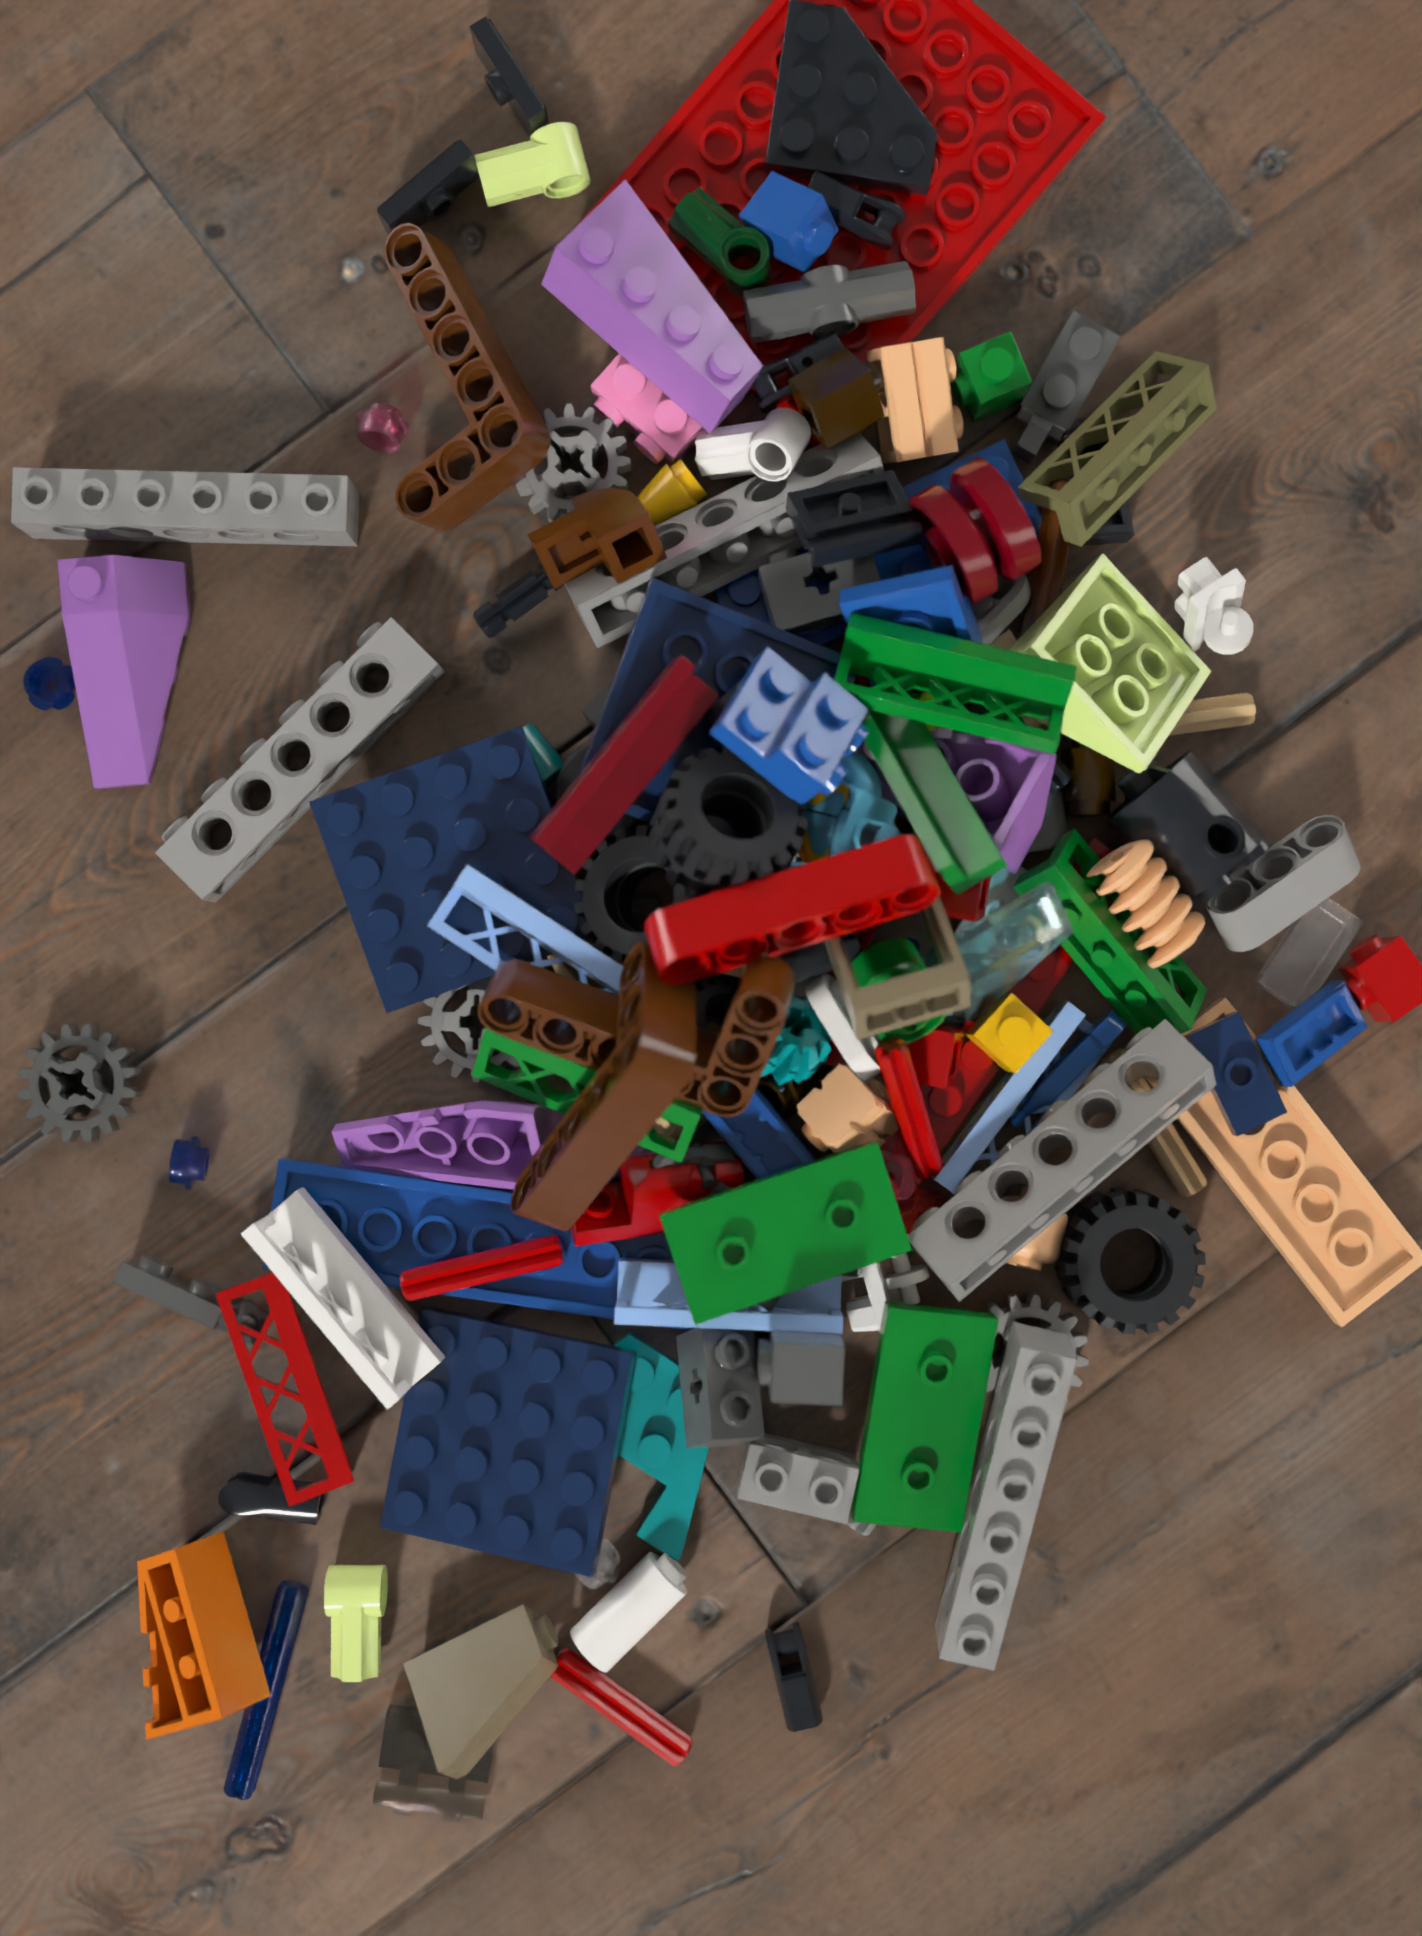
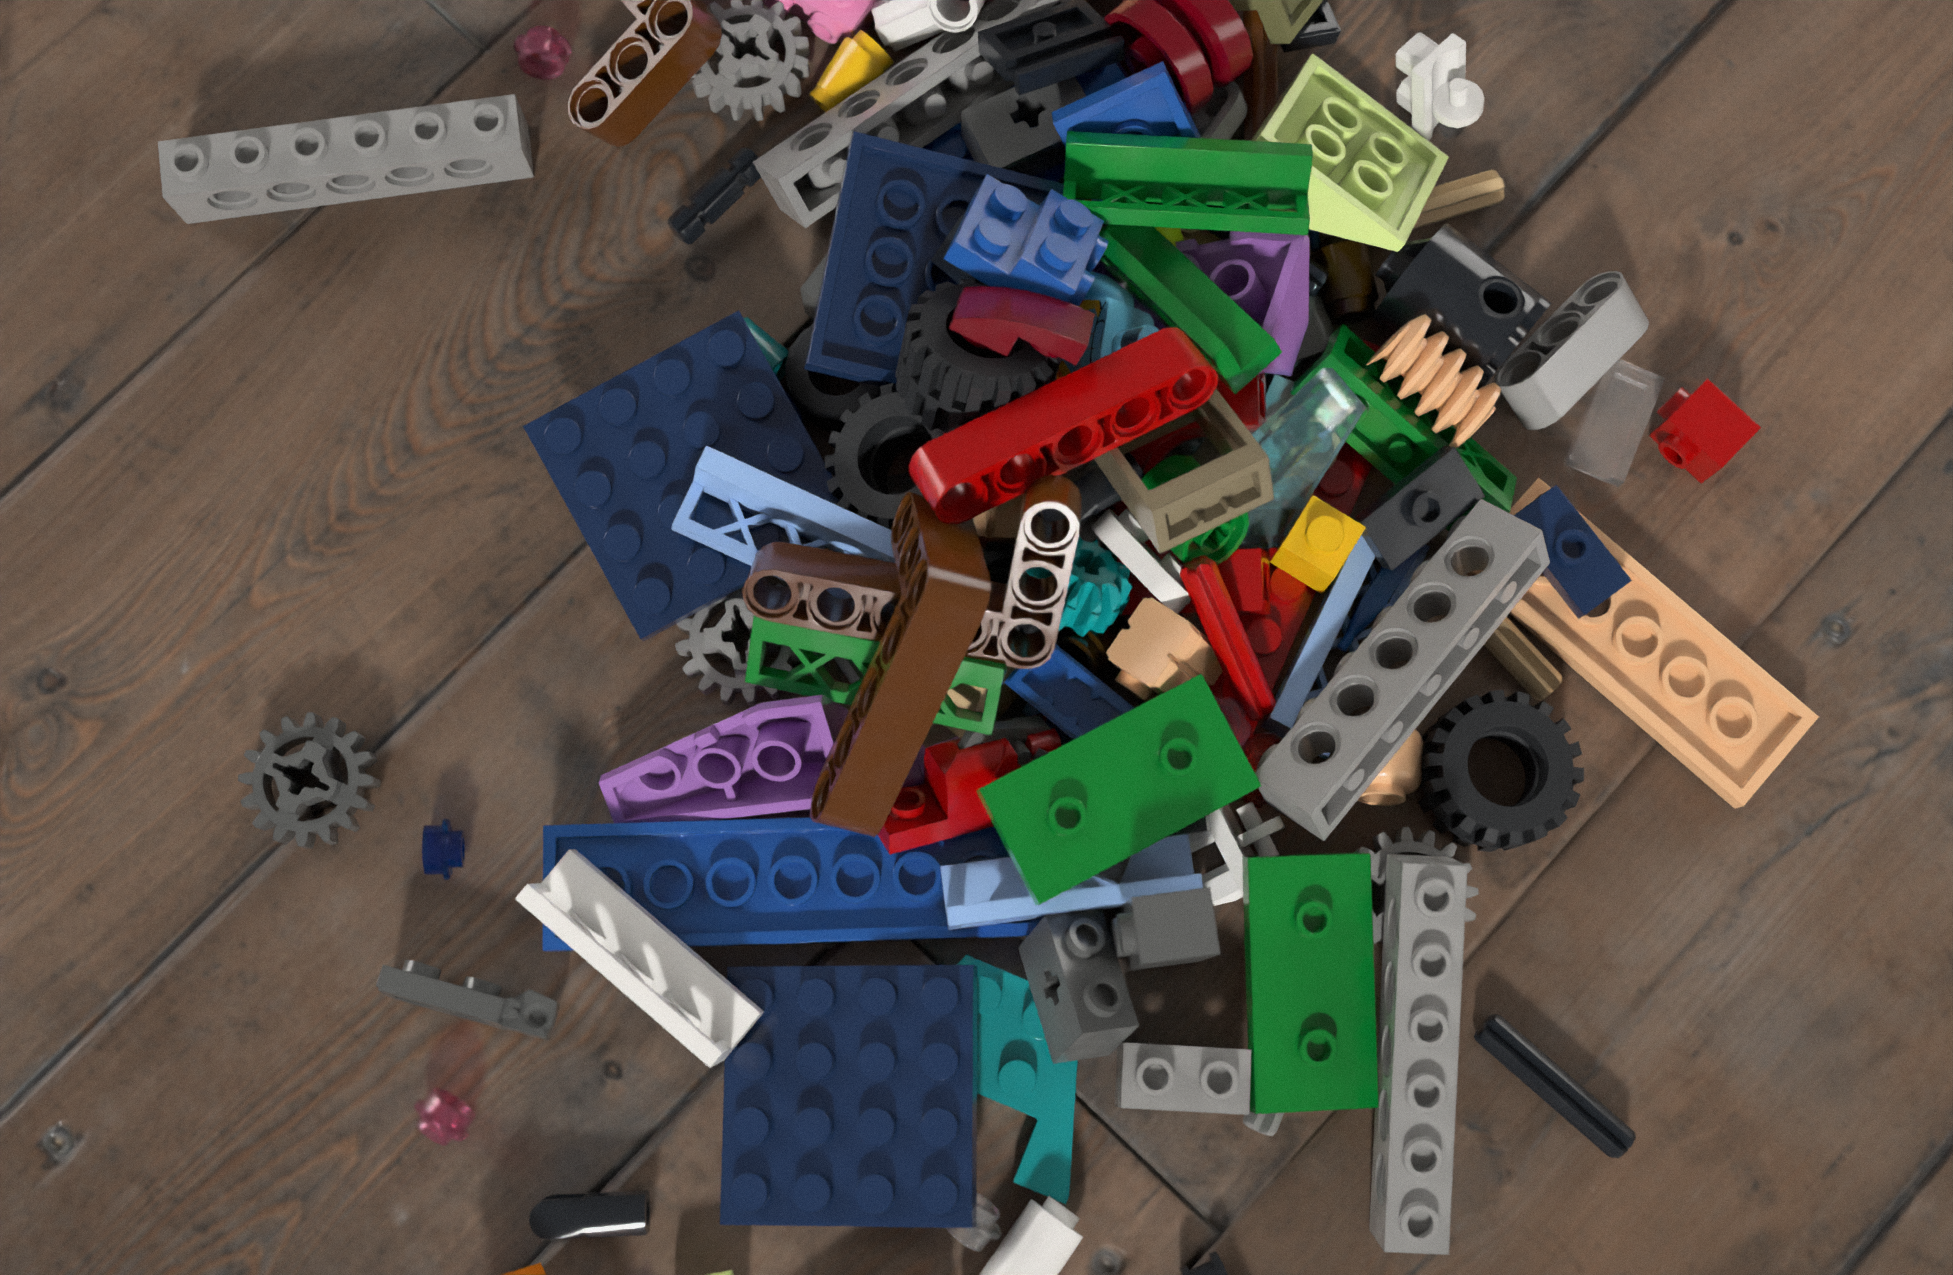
camera: 10 degrees left, 10 degrees down
(36, 682) = (213, 354): clear blue plate -> none
(123, 645) = (299, 309): medium lavender wedge -> none
(159, 1393) = (444, 1117): none -> clear pink plate
(187, 840) = (541, 385): light grey brick -> none
(307, 1380) = (609, 1064): red fence -> none
(481, 1267) = (789, 902): red axle -> none
(603, 528) = (791, 104): reddish brown brick -> none
(624, 765) = (856, 323): dark red fence -> none
(756, 799) = (1000, 315): none -> dark red slope
(1107, 1016) = (1419, 507): none -> black plate
(1120, 1536) = (1555, 1086): none -> black axle
(1311, 1033) = (1637, 498): blue plate -> none

